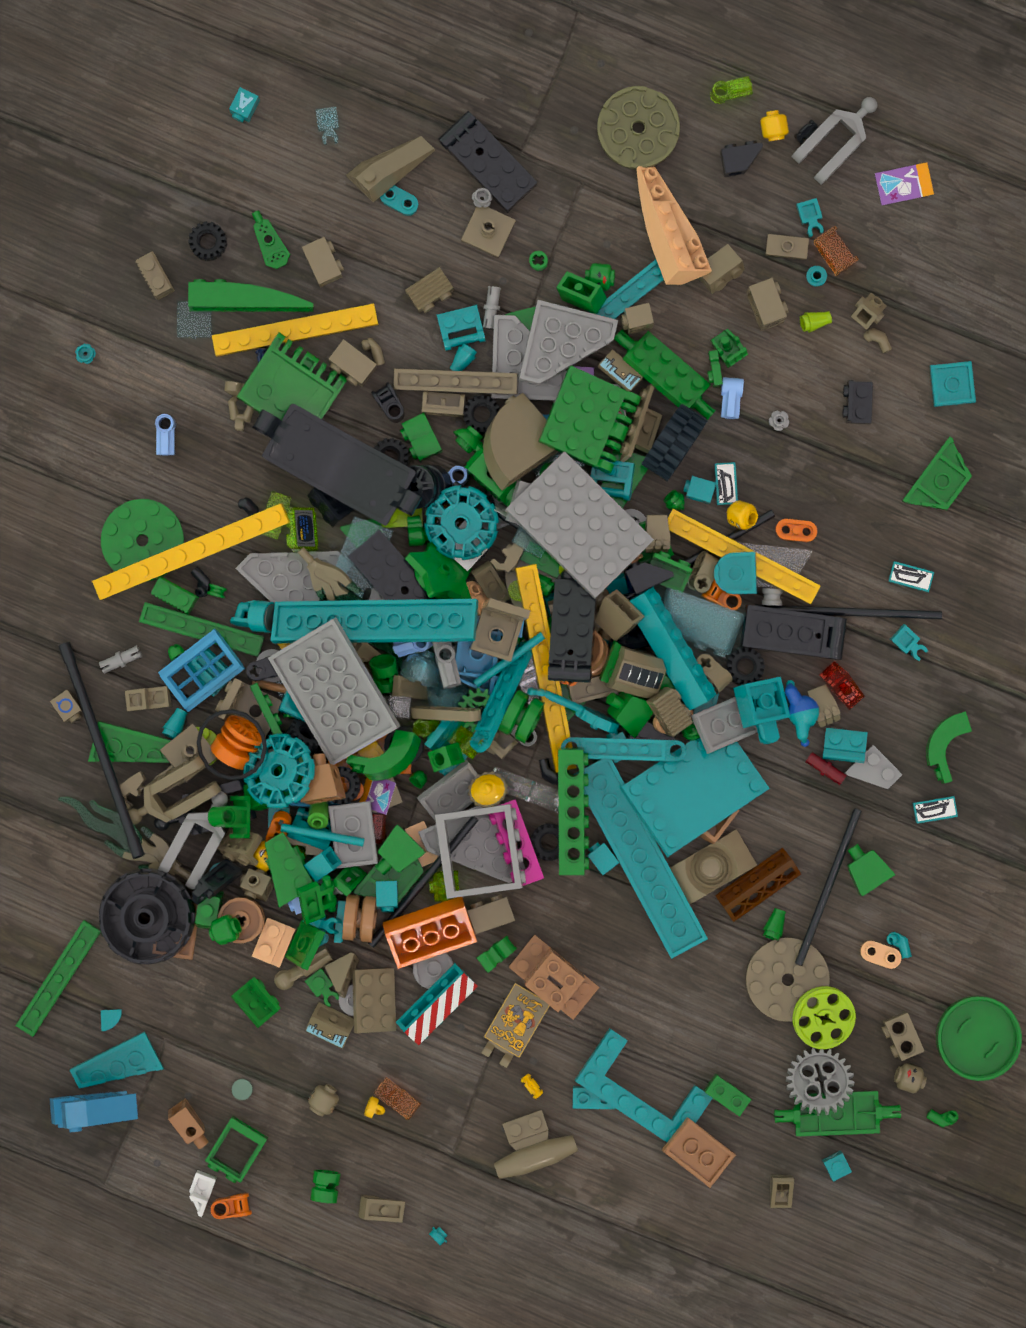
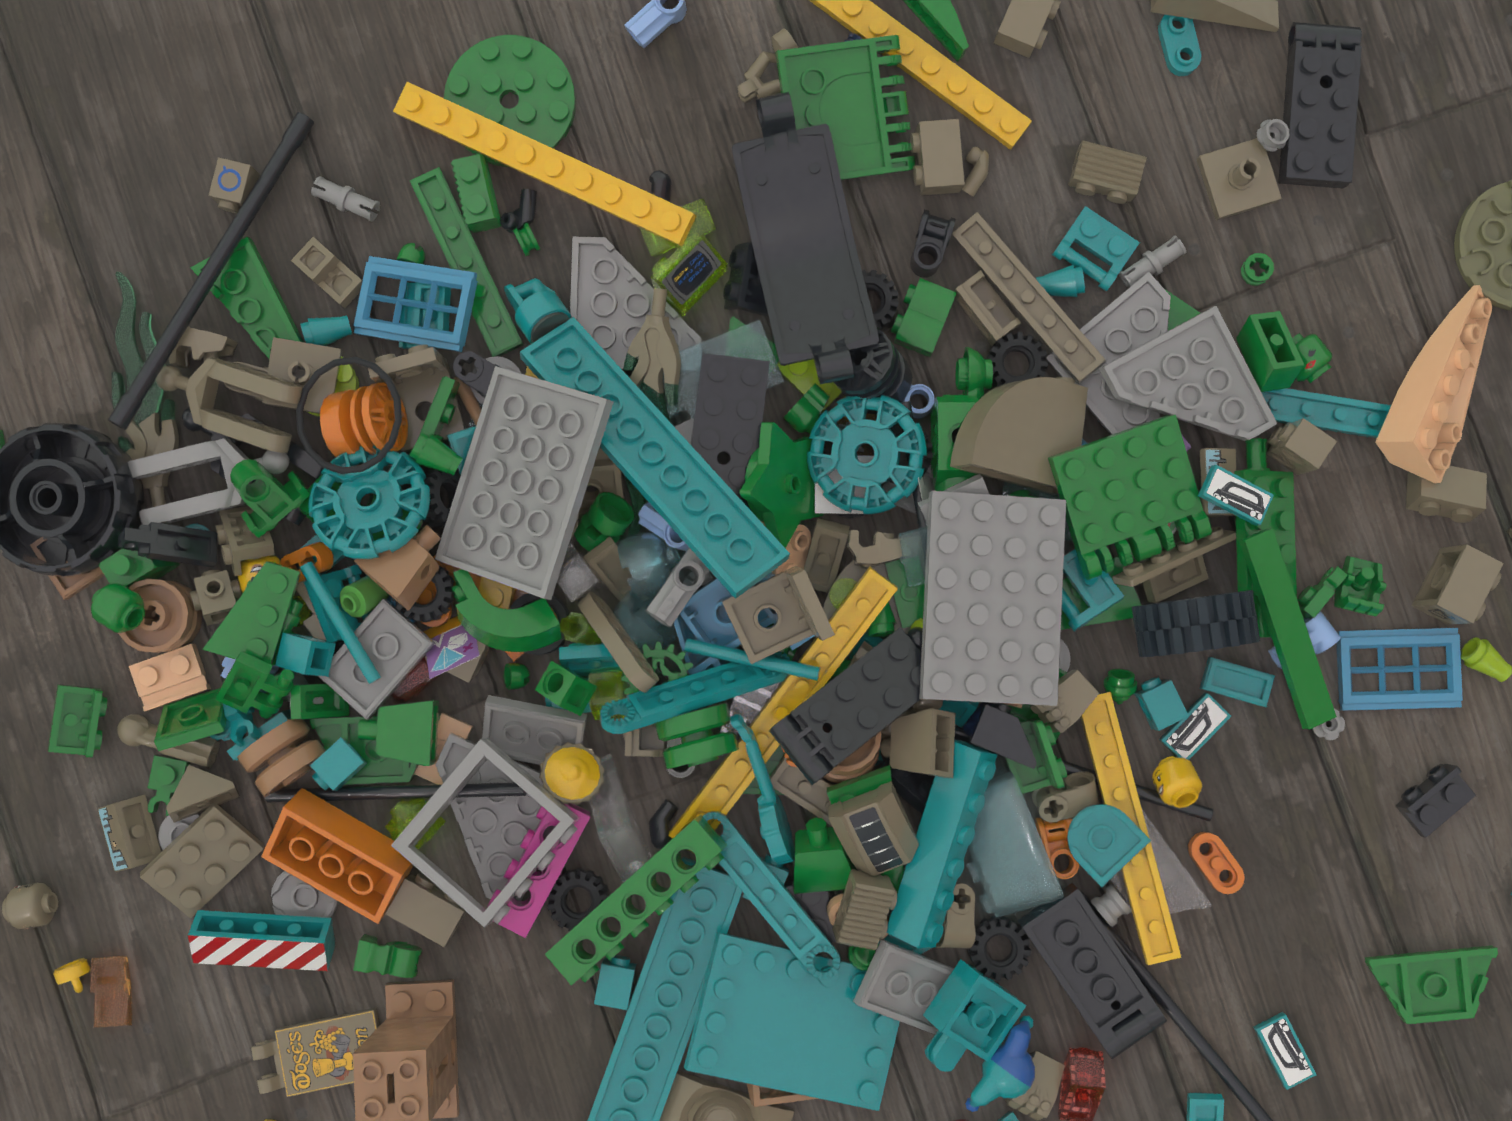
camera: 45 degrees right, 0 degrees up
(282, 722) = (435, 454): none -> green cone
(632, 370) = (1235, 495): none -> tile
(715, 401) = (1287, 628): none -> green tile
(722, 445) = (1237, 682): none -> teal tile
(799, 375) = (1397, 639): none -> dark azure piece

